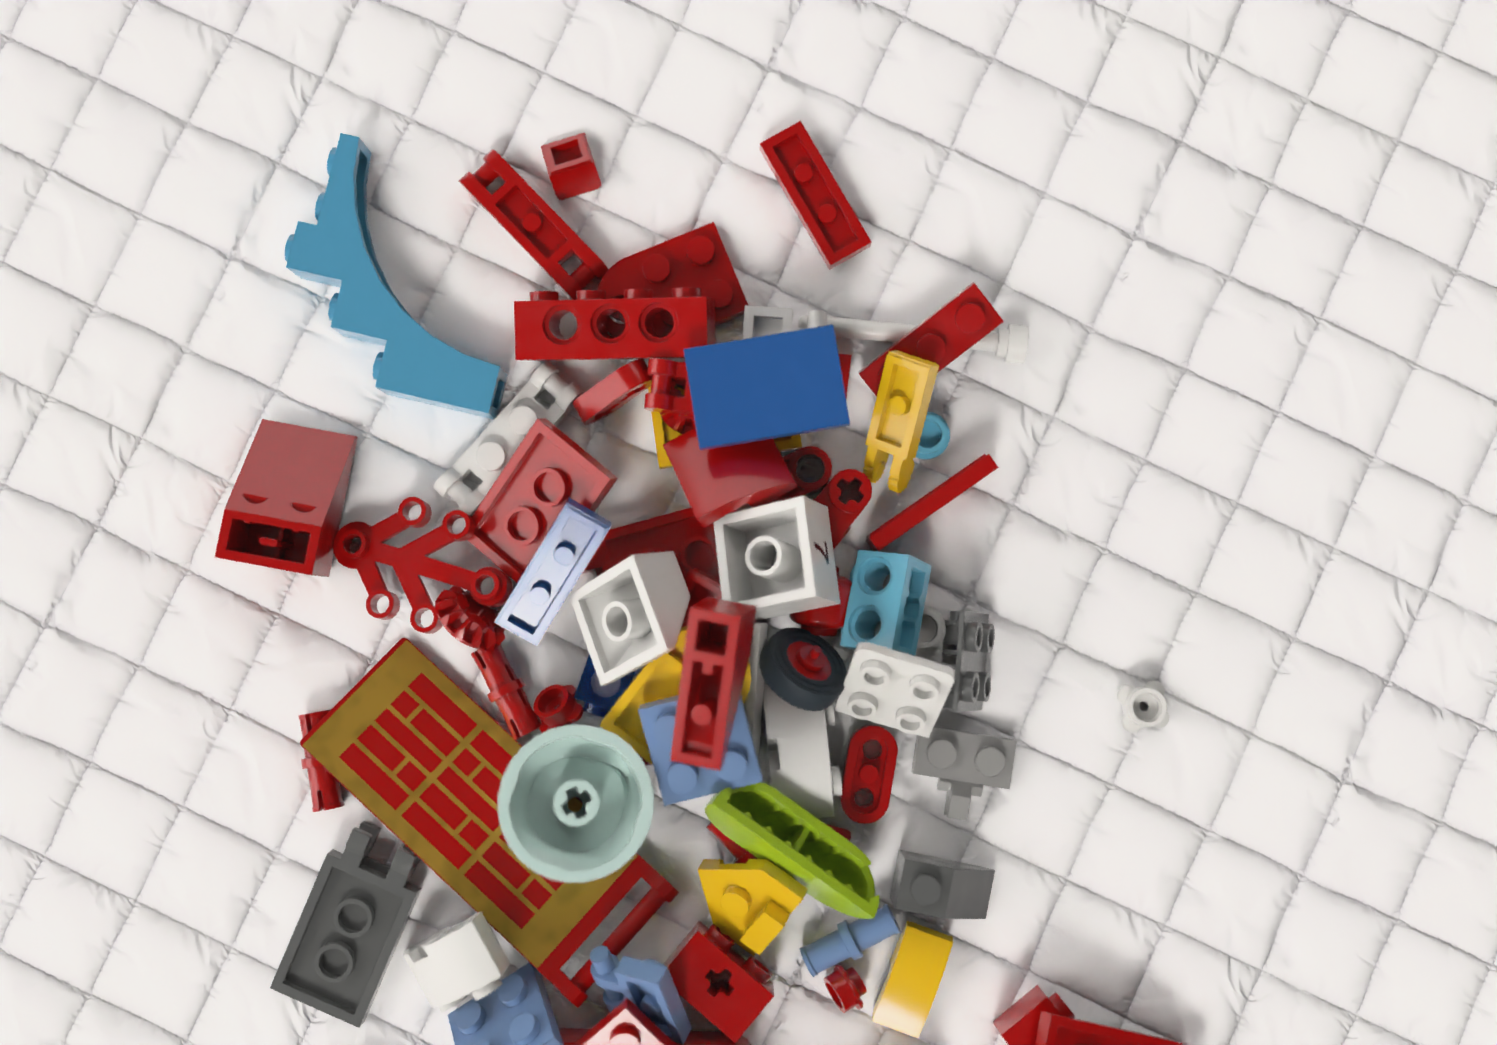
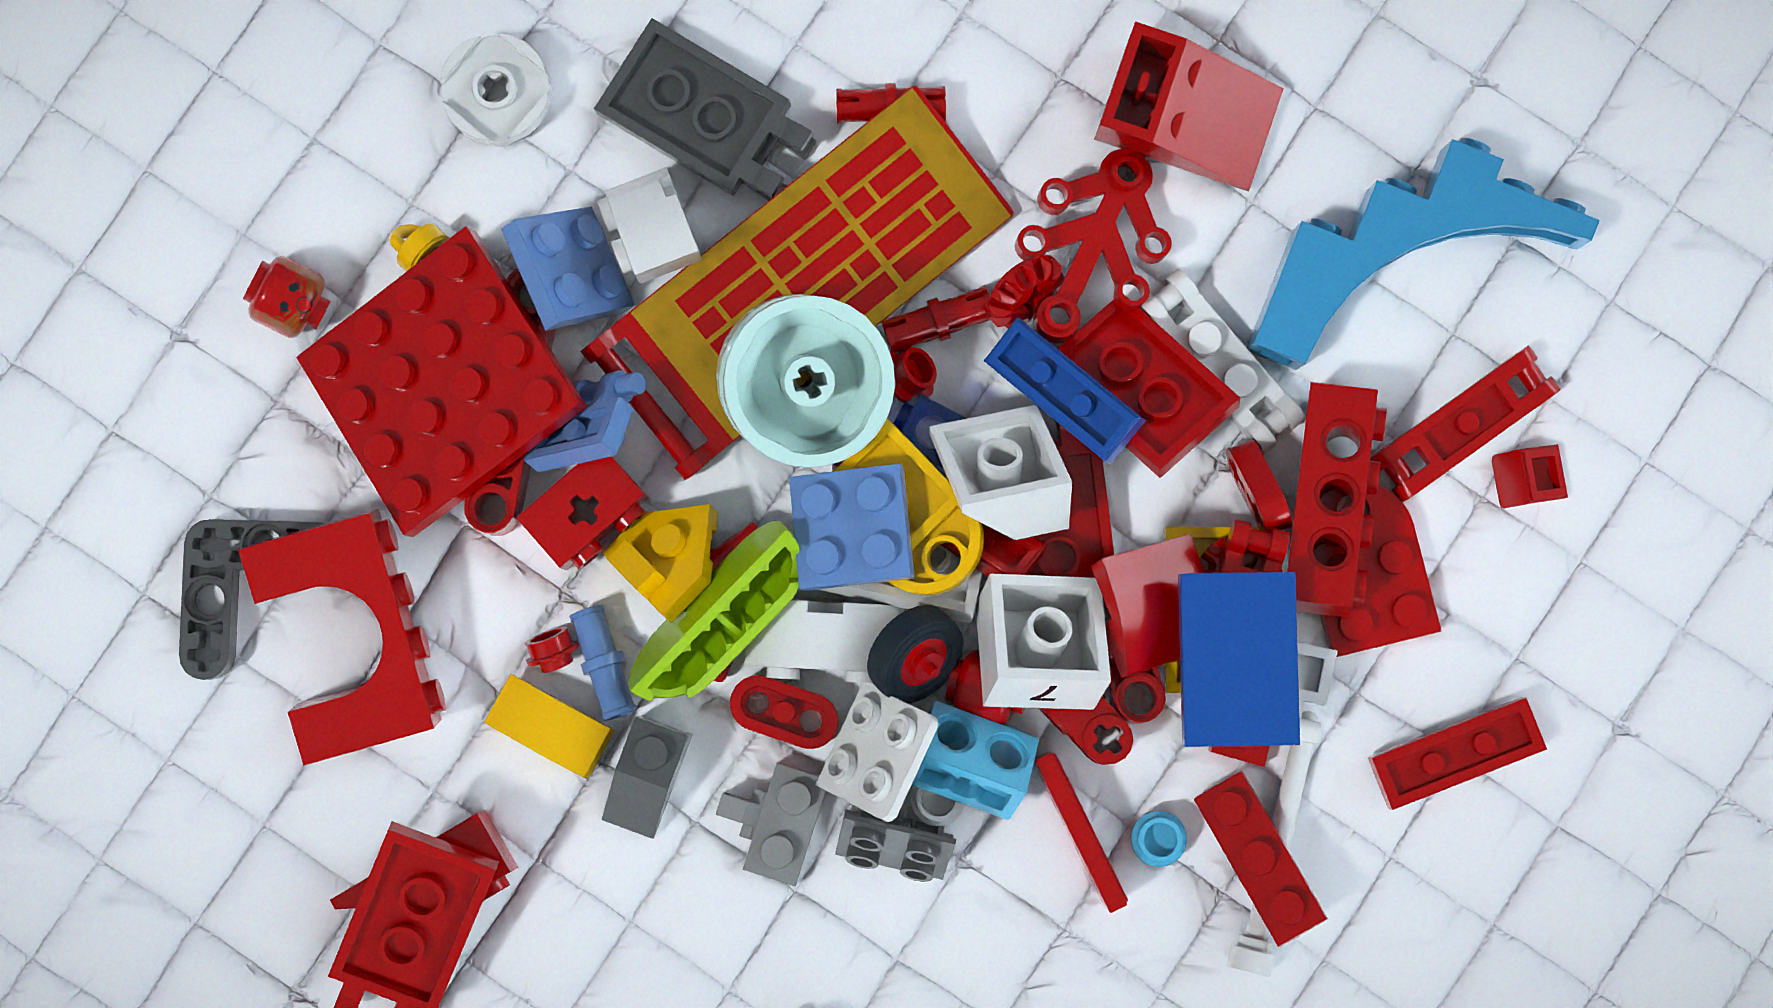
camera: 95 degrees right, 0 degrees up
(711, 680) = (922, 548): red slope -> none
(899, 417) = (1182, 807): yellow hinge -> none

